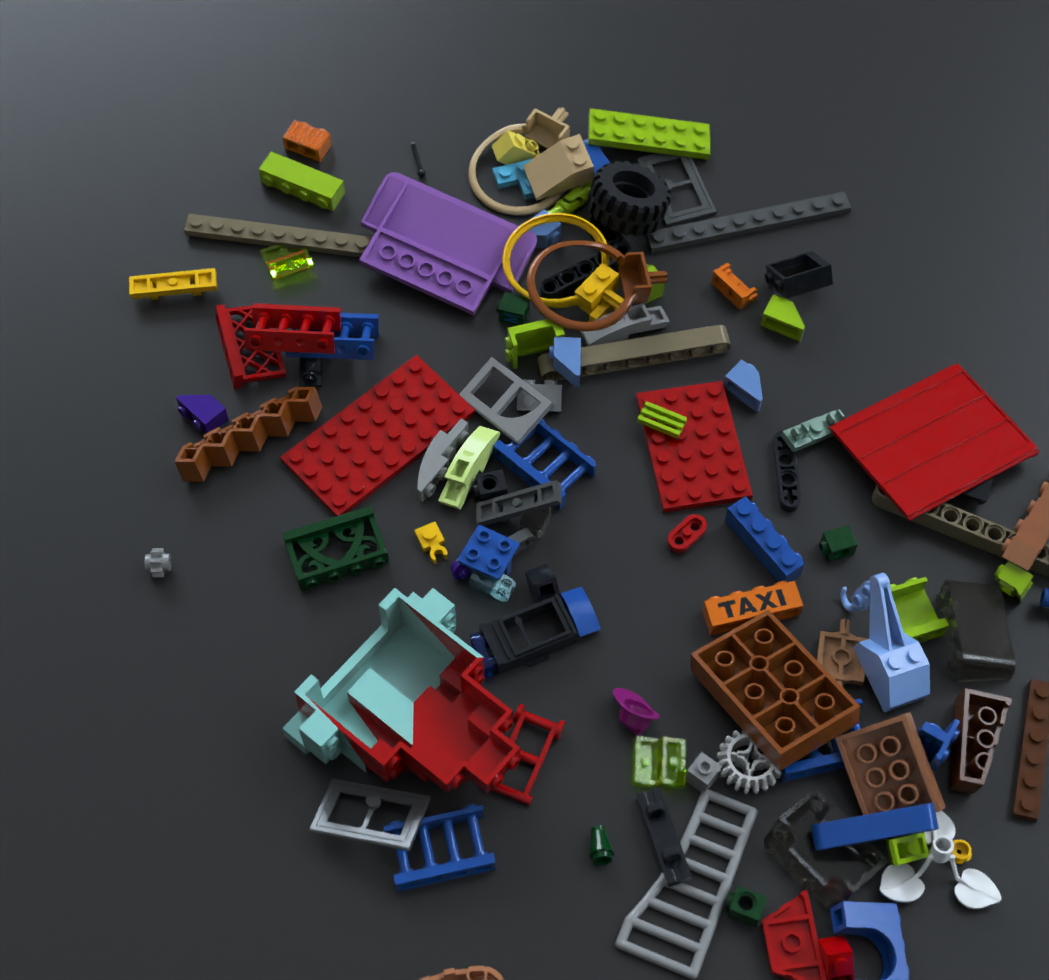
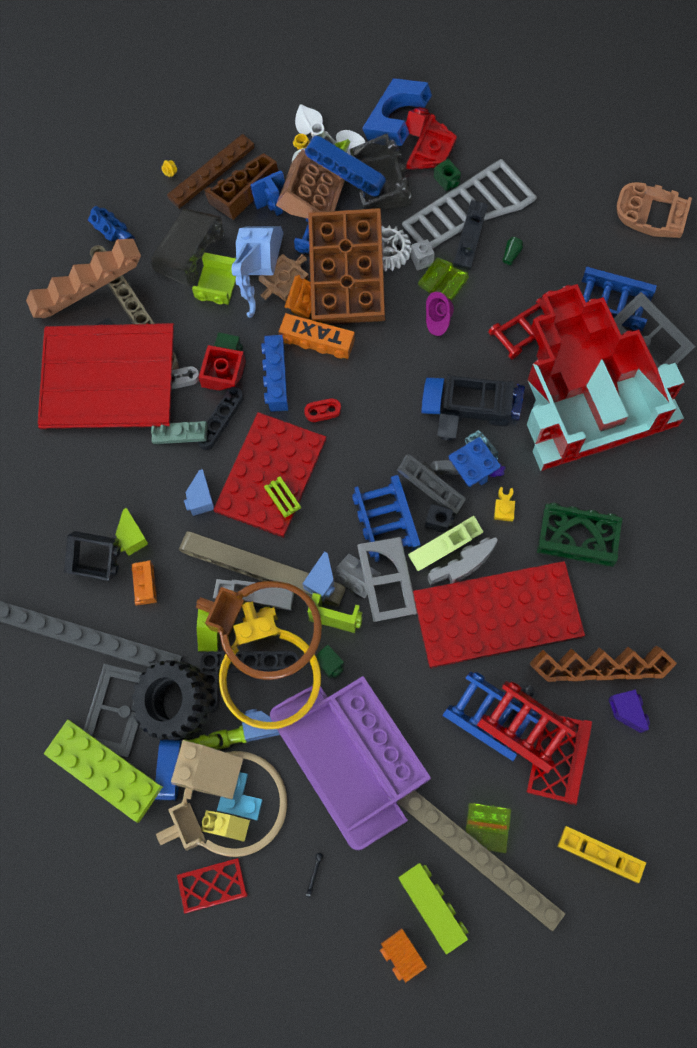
camera: 145 degrees left, 10 degrees up
(515, 115) = (198, 873): none -> red window
(806, 633) = (300, 297): none -> orange plate
(822, 509) = (221, 368): none -> red slope
(856, 486) = (182, 377): none -> light grey beam
(1013, 580) = (146, 251): lime window -> none

